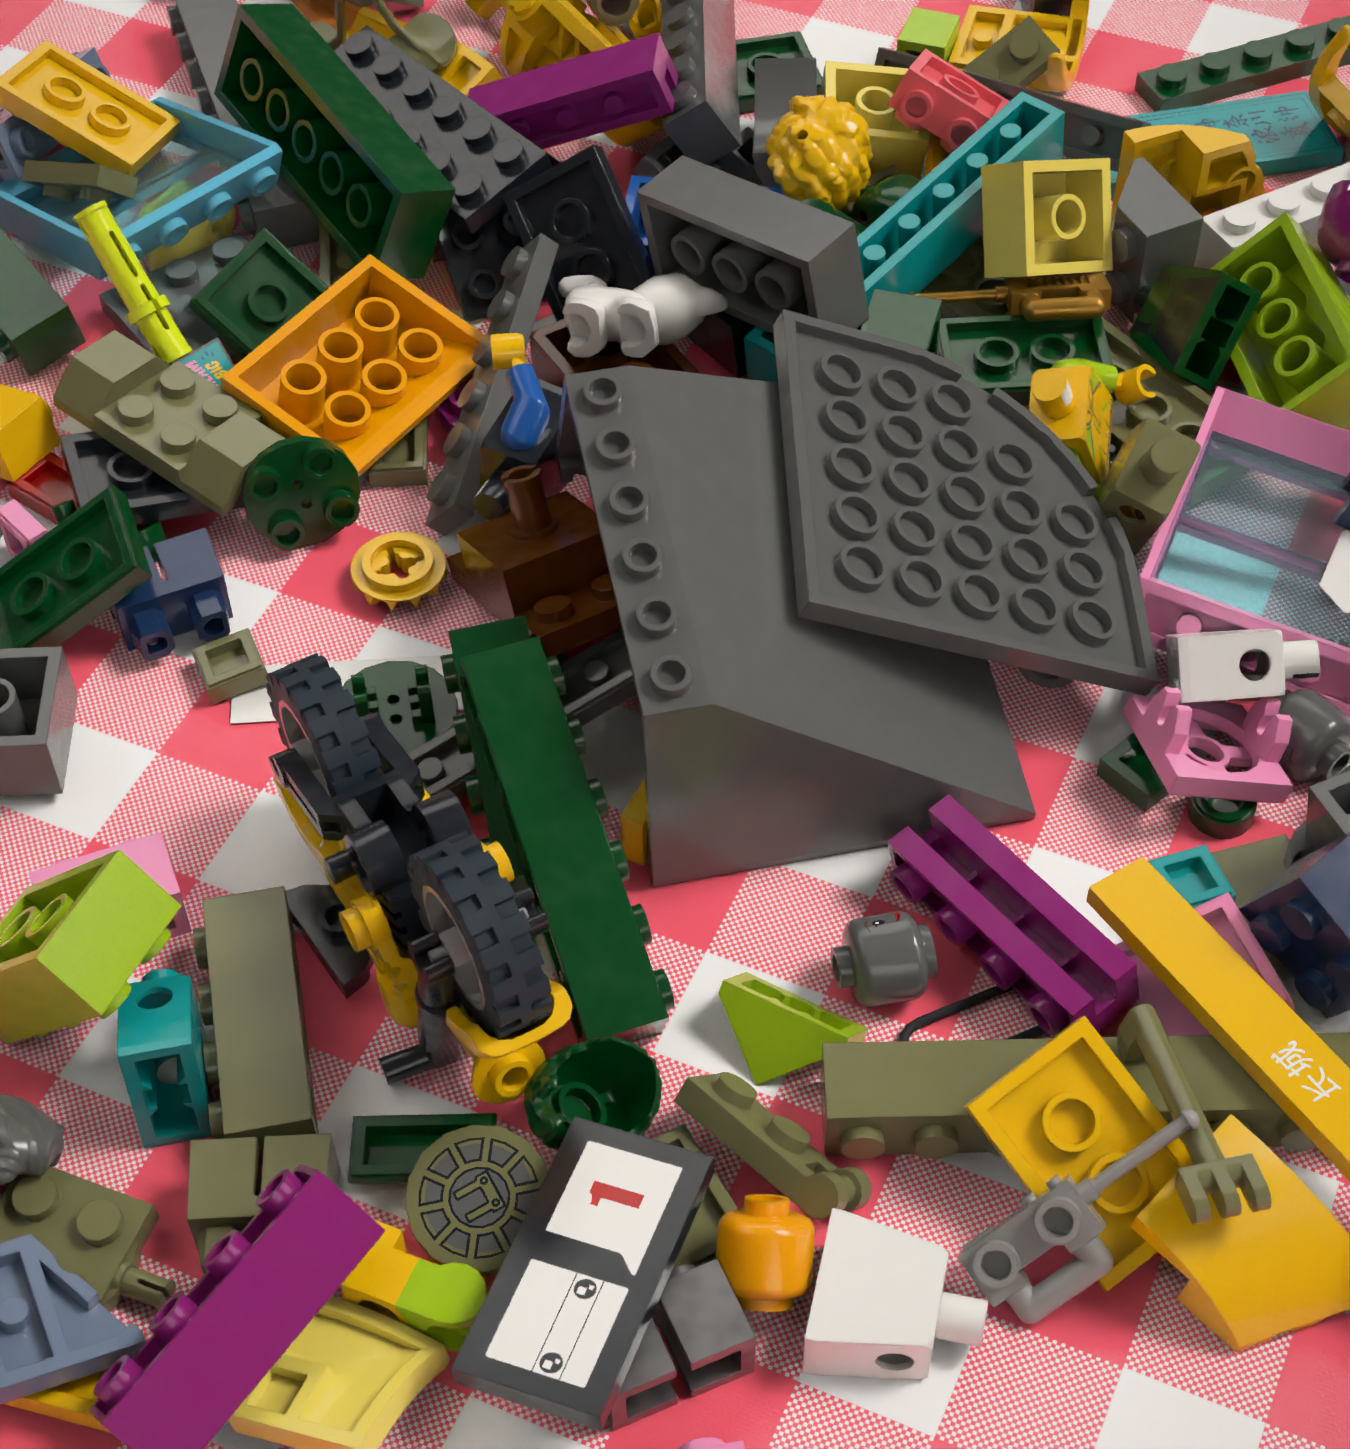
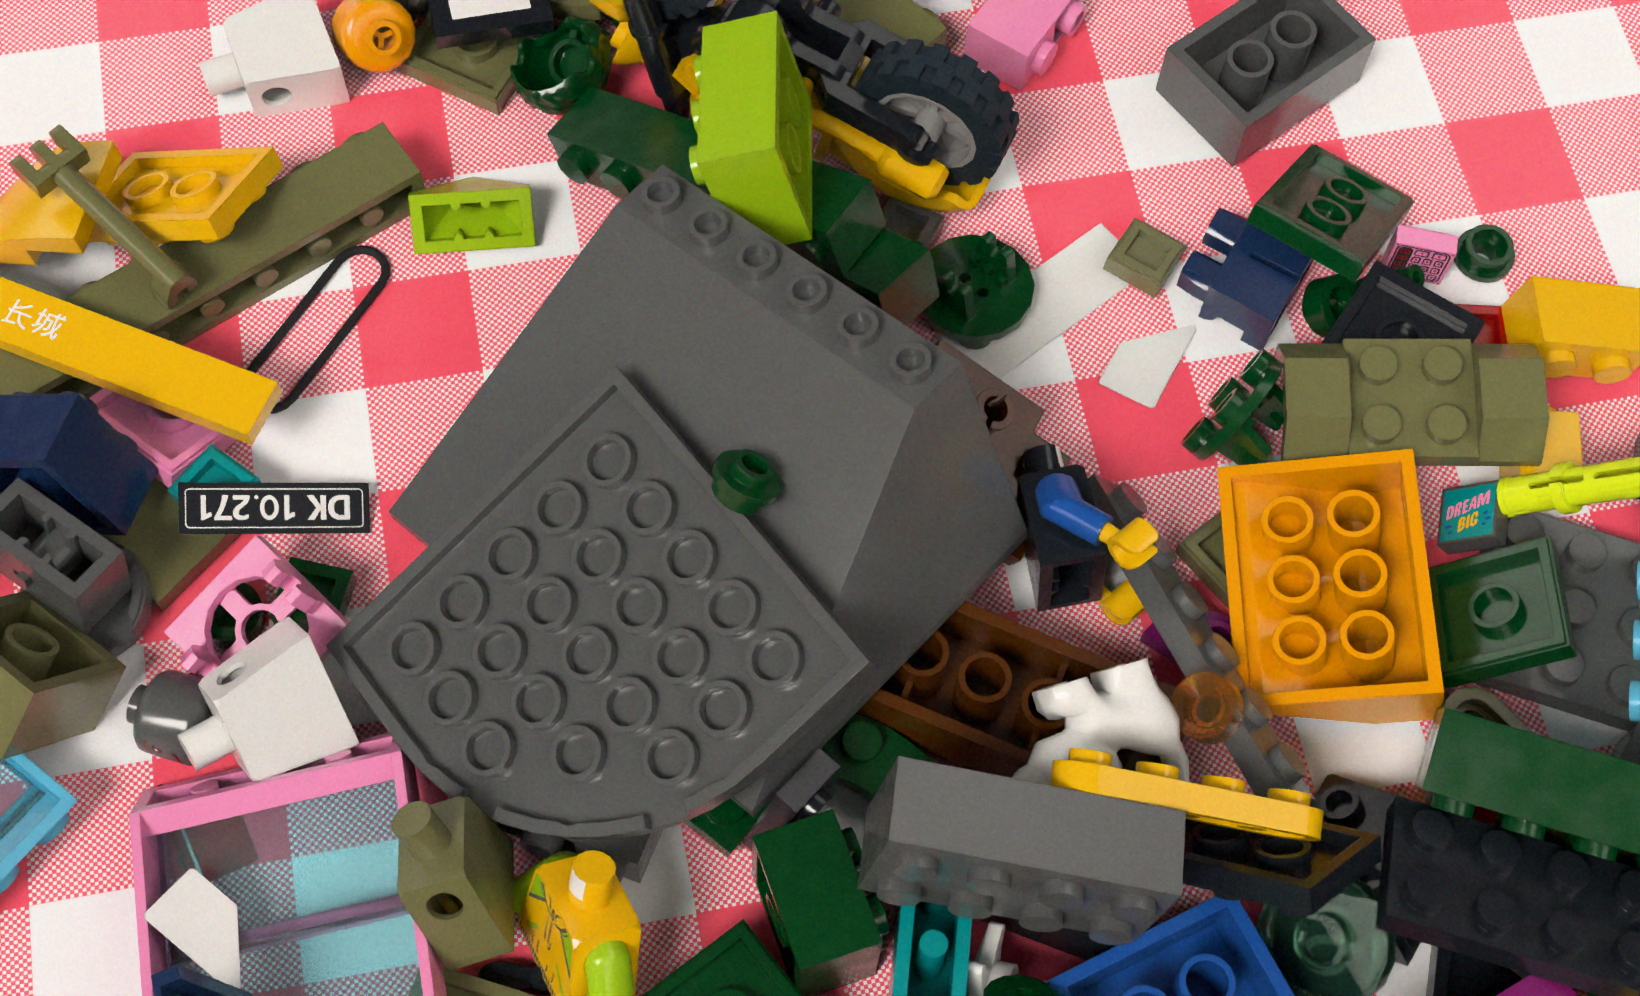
camera: 140 degrees right, 15 degrees up
(312, 605) = (1146, 364): none -> white sticker
(411, 553) = (1089, 403): yellow gear -> none
(534, 715) = (754, 126): none -> lime brick
(537, 304) = (1208, 707): none -> clear orange tile
(620, 228) = (1214, 802): none -> yellow plate
(772, 1145) = (423, 111): olive plate -> none
(777, 454) = (744, 481): none -> dark green plate
(885, 959) = (424, 284): dark grey head -> none
(1012, 921) = (346, 365): magenta brick -> none
(1054, 1218) = (177, 136): light grey piece -> none
(1144, 840) = (273, 508): none -> black sticker

